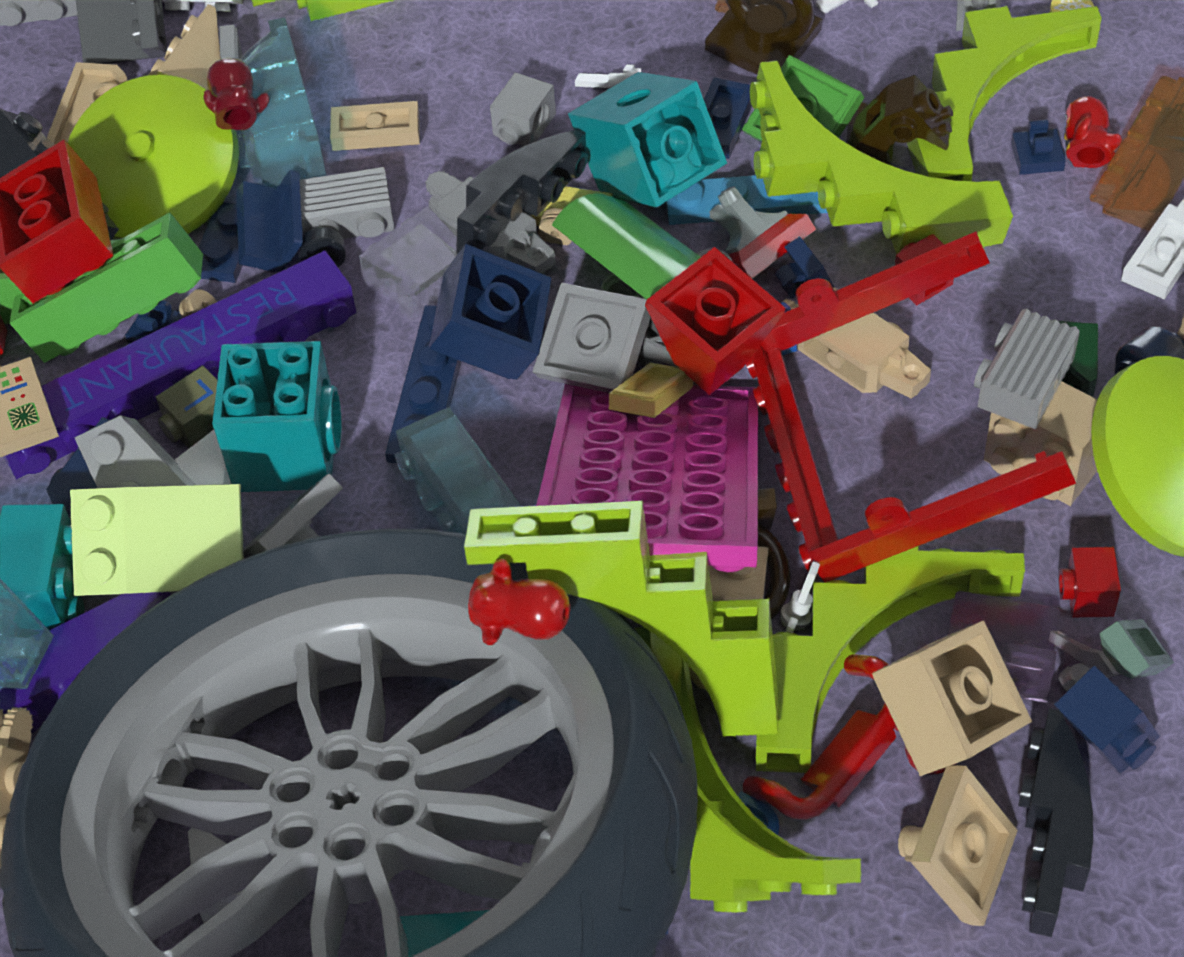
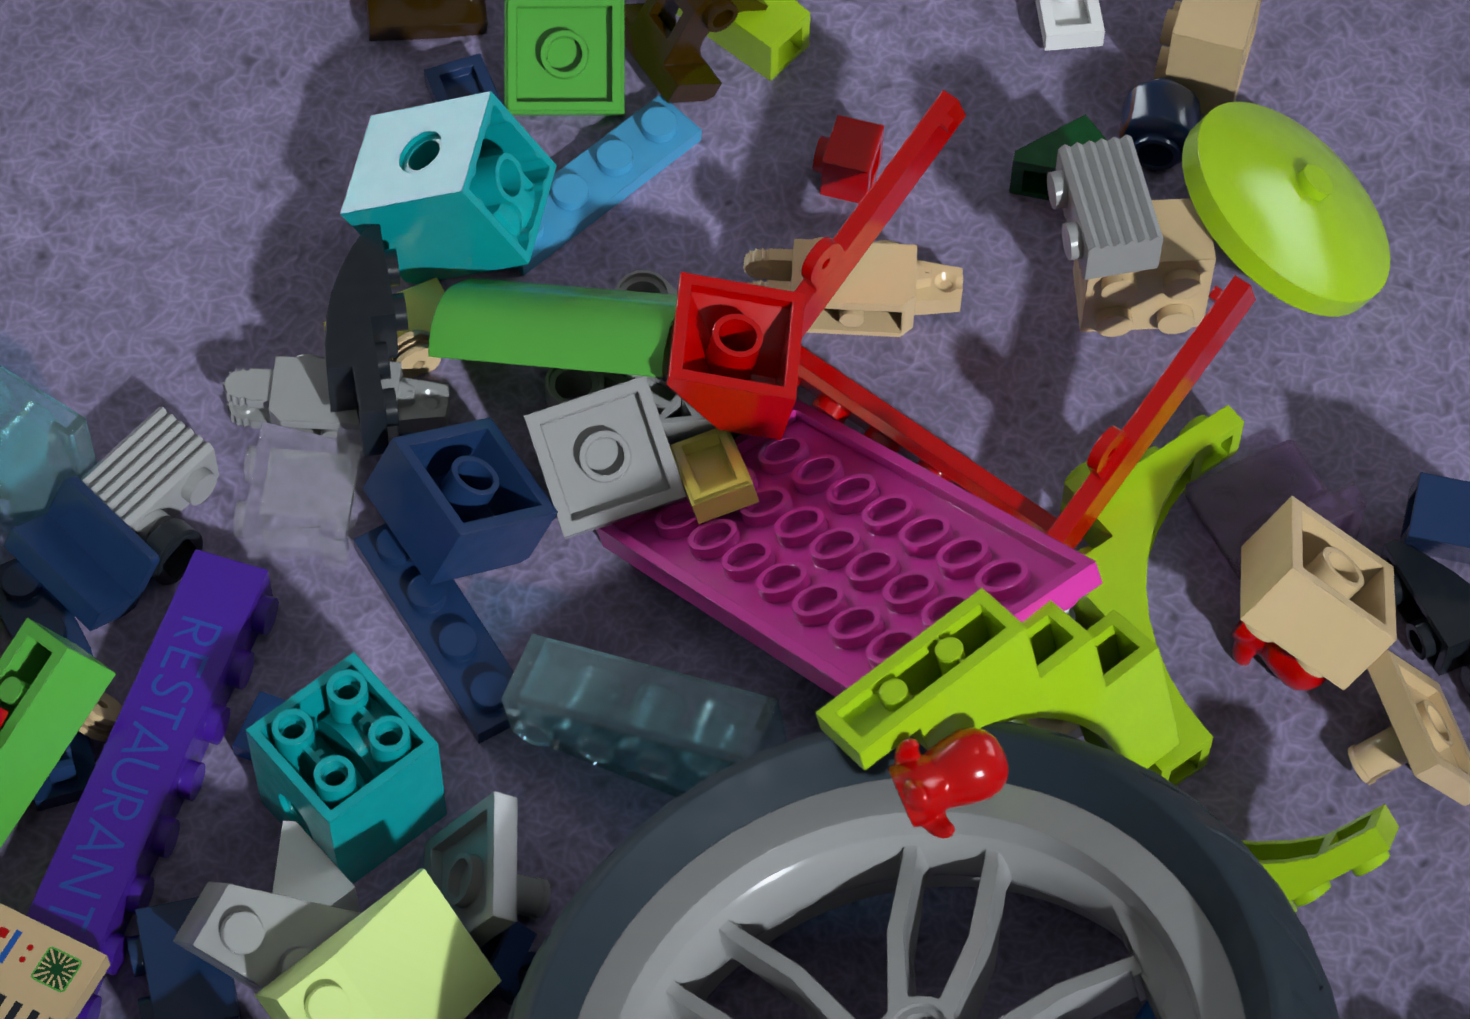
camera: 45 degrees left, 5 degrees up
(188, 407) = (218, 828): olive brick -> none
(375, 125) = (84, 358): tan plate -> none
(522, 110) = (242, 240): light grey brick -> none
(605, 80) = (318, 130): white piece -> none
(757, 236) = (654, 231): piece -> none
(804, 267) = (730, 238): dark blue tile -> none
(841, 763) = (1233, 709): red piece -> none
(857, 189) = (705, 110): lime arch -> none
(1091, 582) = (1301, 392): red plate -> none
(1126, 650) = (1400, 447): sand green piece -> none

